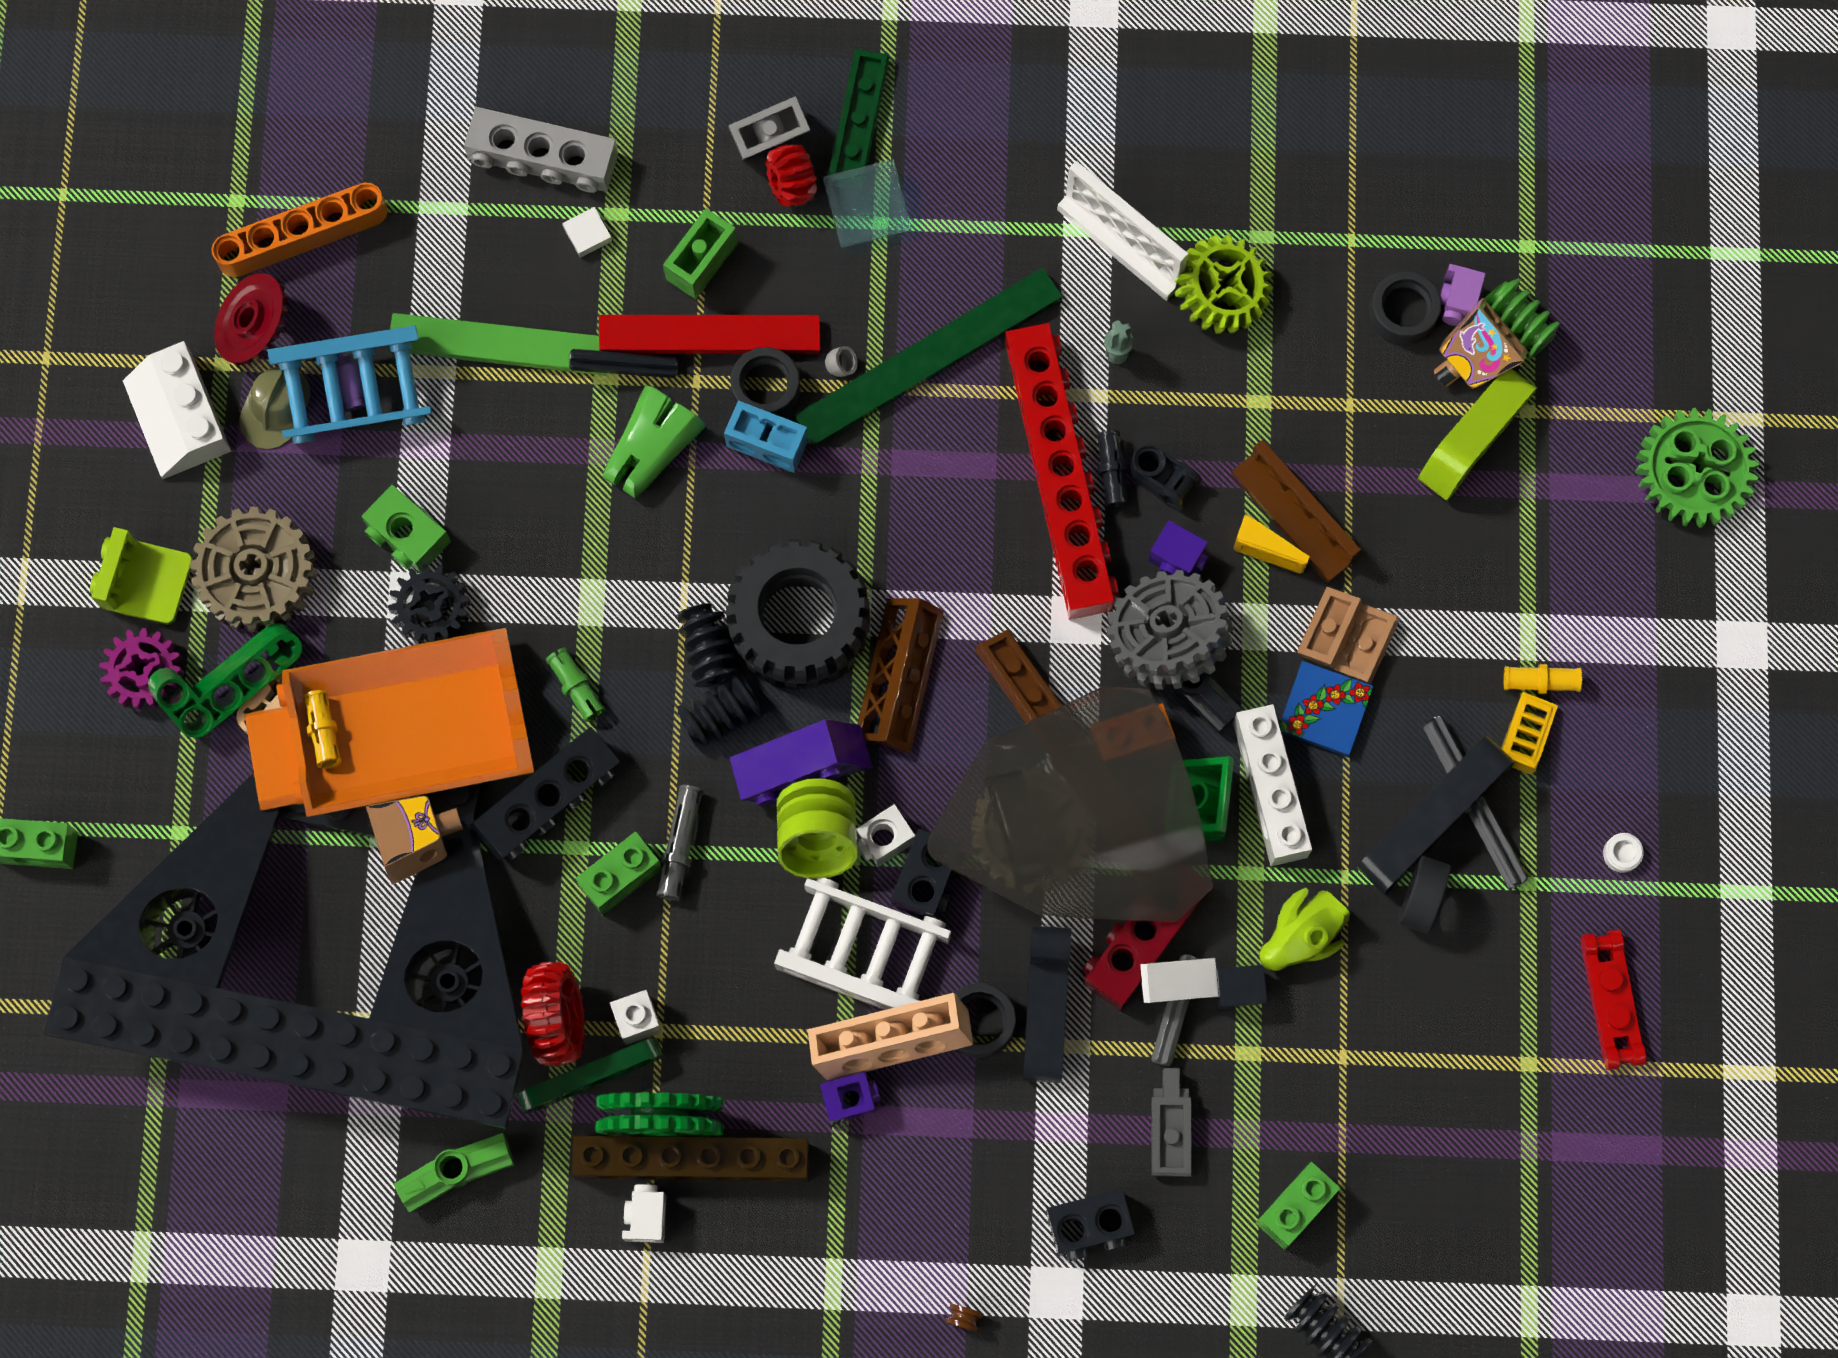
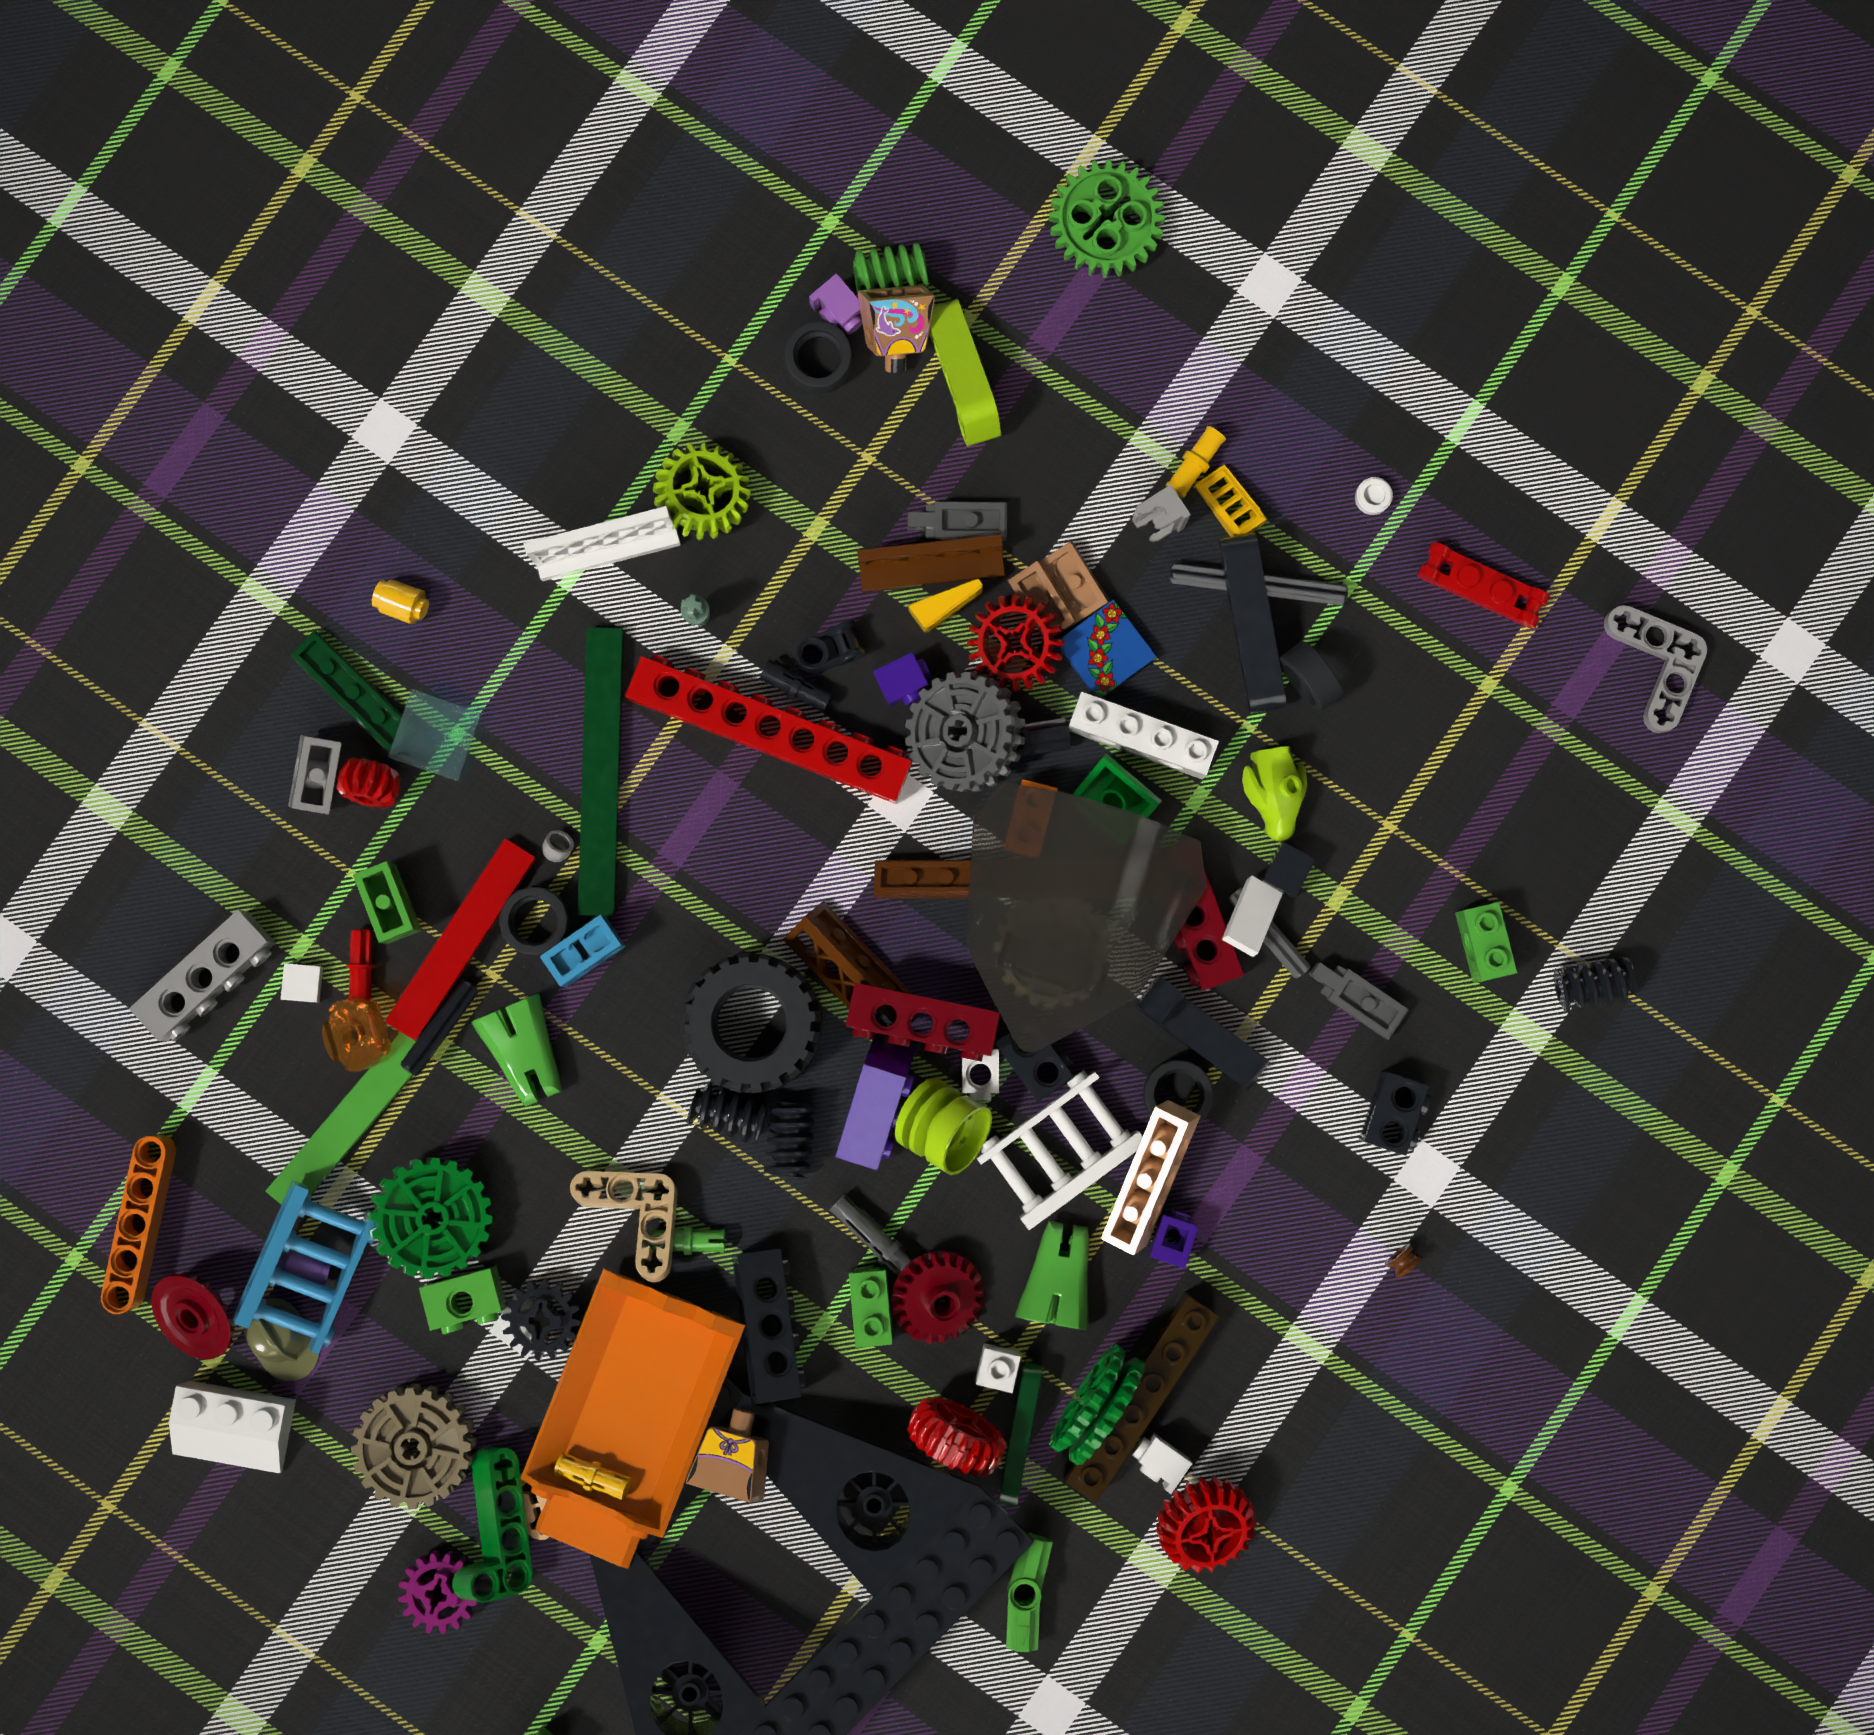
camera: 55 degrees left, 10 degrees up
(140, 578) = (359, 1545): lime bracket -> none
(486, 455) = (416, 1243): none -> green piece
(582, 632) = (649, 1208): none -> tan beam
(590, 298) = (371, 1030): none -> clear orange plate
(629, 1312) = (1206, 1524): none -> red gear
(633, 269) = (360, 964): none -> red axle
(679, 906) = (927, 1280): none -> dark red gear
(747, 1022) = (1058, 1280): none -> bright green piece
(883, 693) = (868, 999): none -> dark red brick
(960, 105) = (400, 601): none -> yellow brick
(1291, 627) = (1005, 656): none -> red gear
(1350, 512) = (960, 520): none -> dark grey hinge
(1479, 669) = (1166, 512): none -> light grey hinge
(1666, 1216) = (1674, 661): none -> light grey beam

